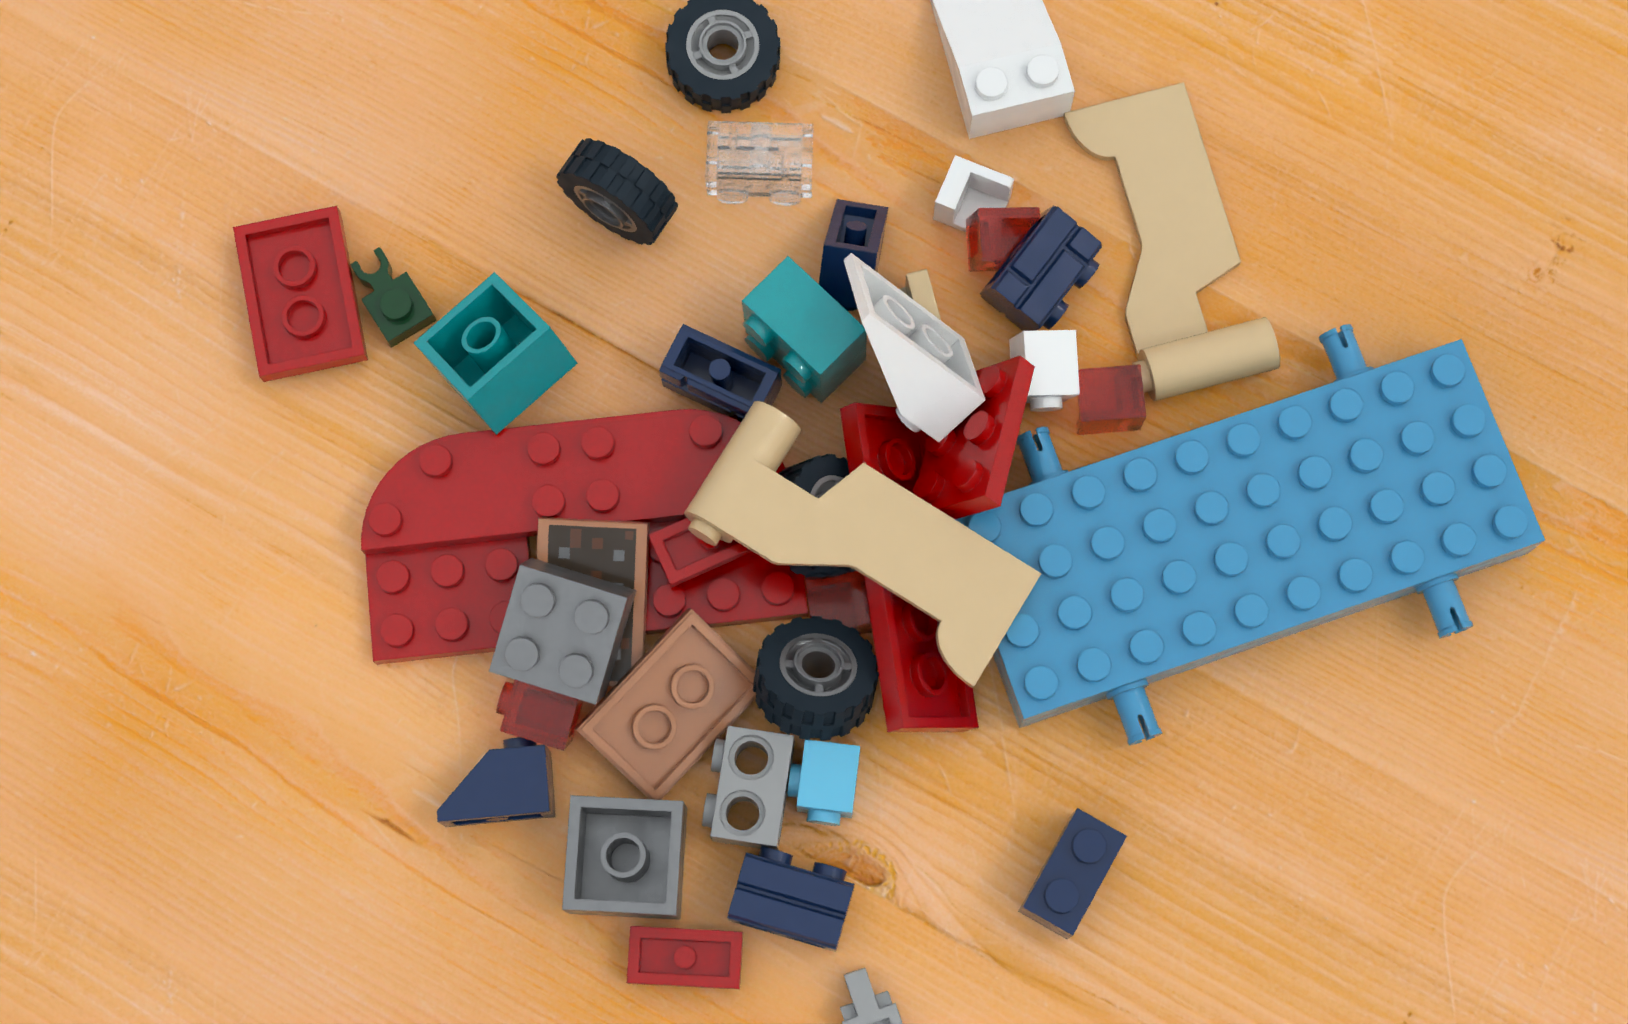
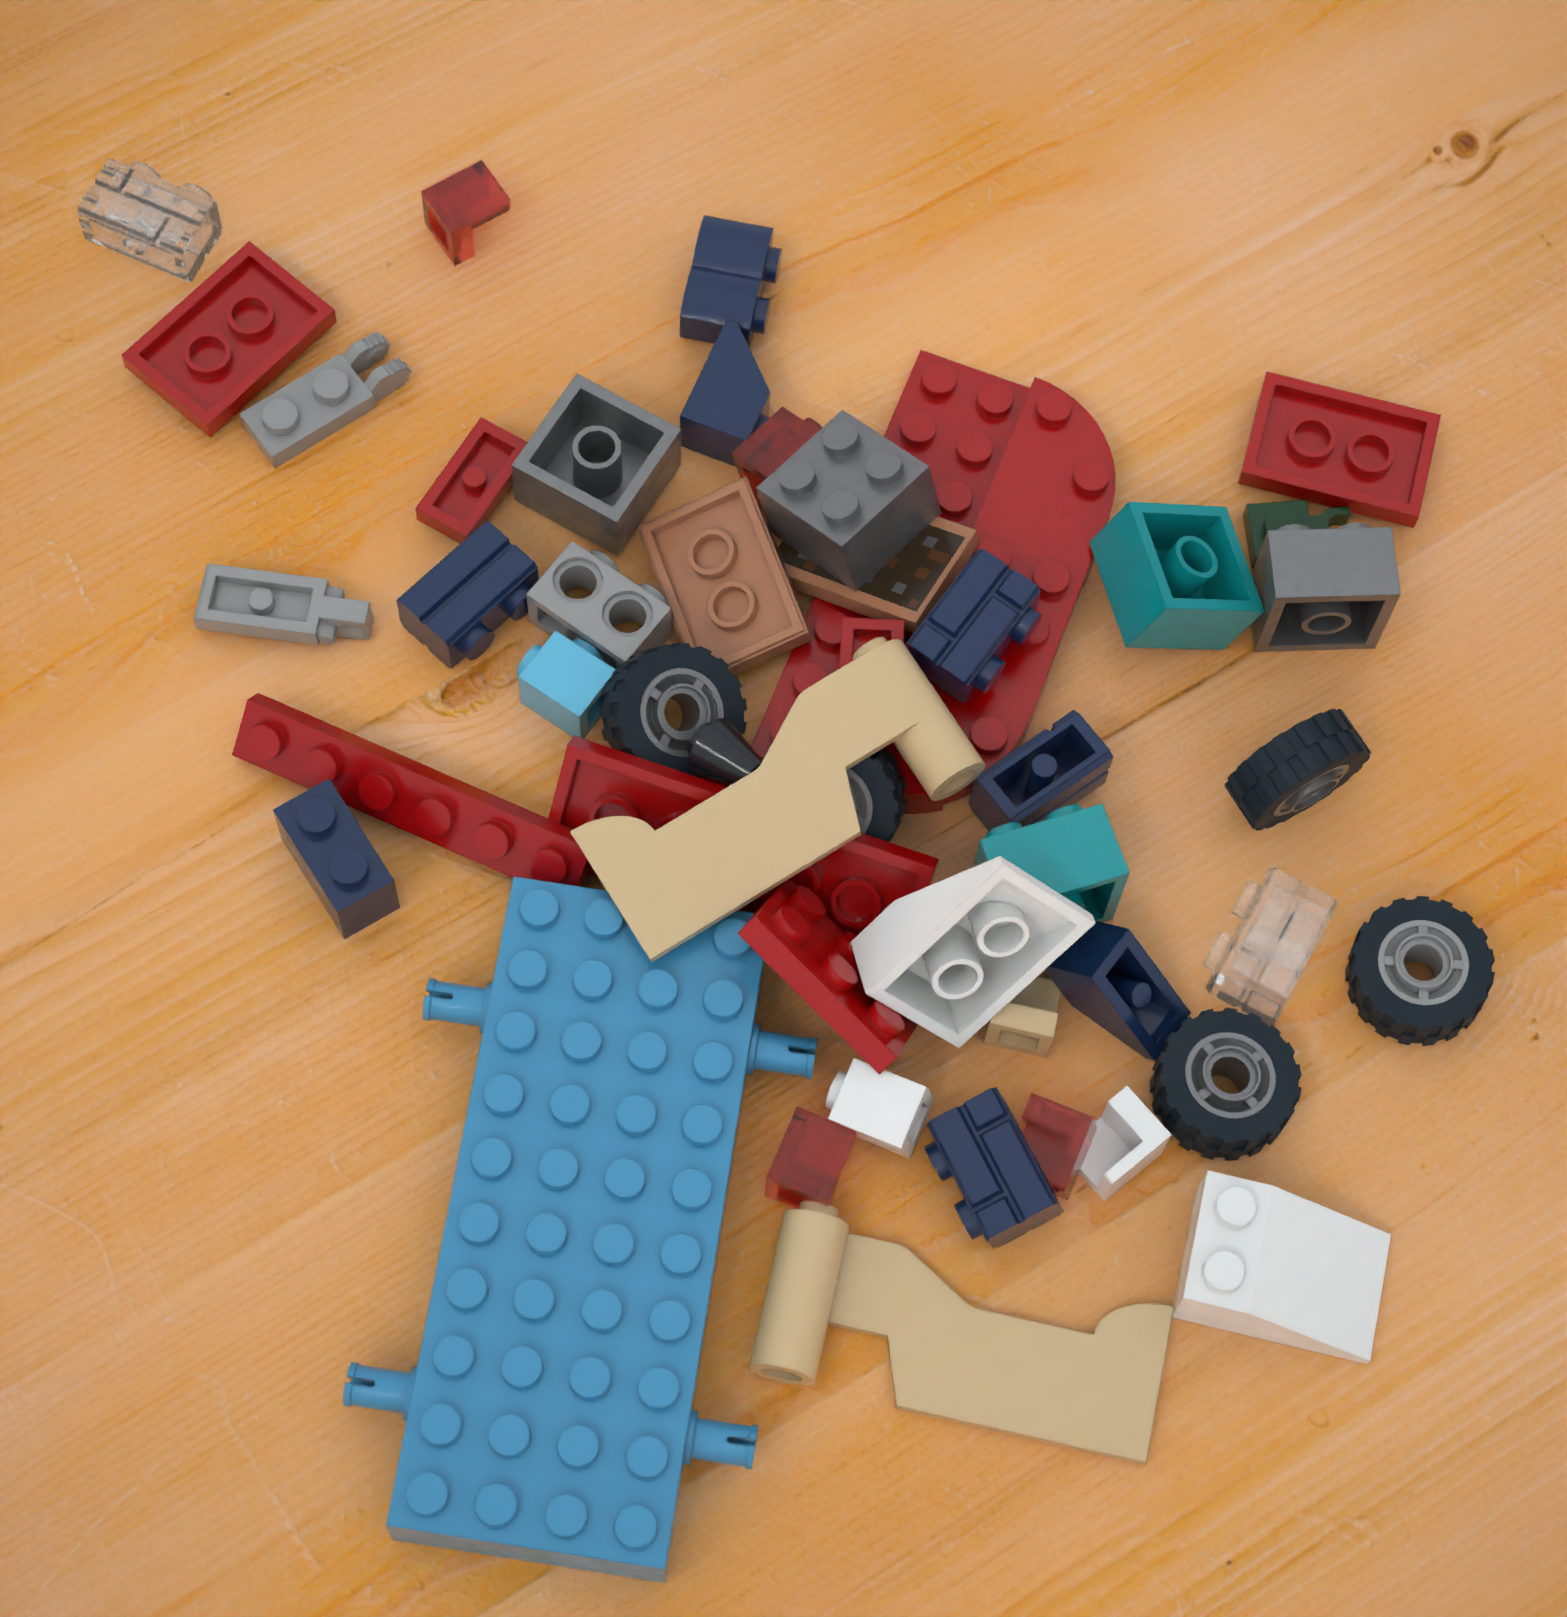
camera: 110 degrees right, 10 degrees down
(388, 849) = (729, 279): none -> dark blue brick
(442, 237) = (1324, 587): none -> flat silver brick
(630, 474) = (974, 625): none -> dark blue brick
(840, 606) = (721, 752): none -> black cone
(881, 115) = (1248, 1055): none -> black wheel
(988, 849) = (409, 794): none -> red plate

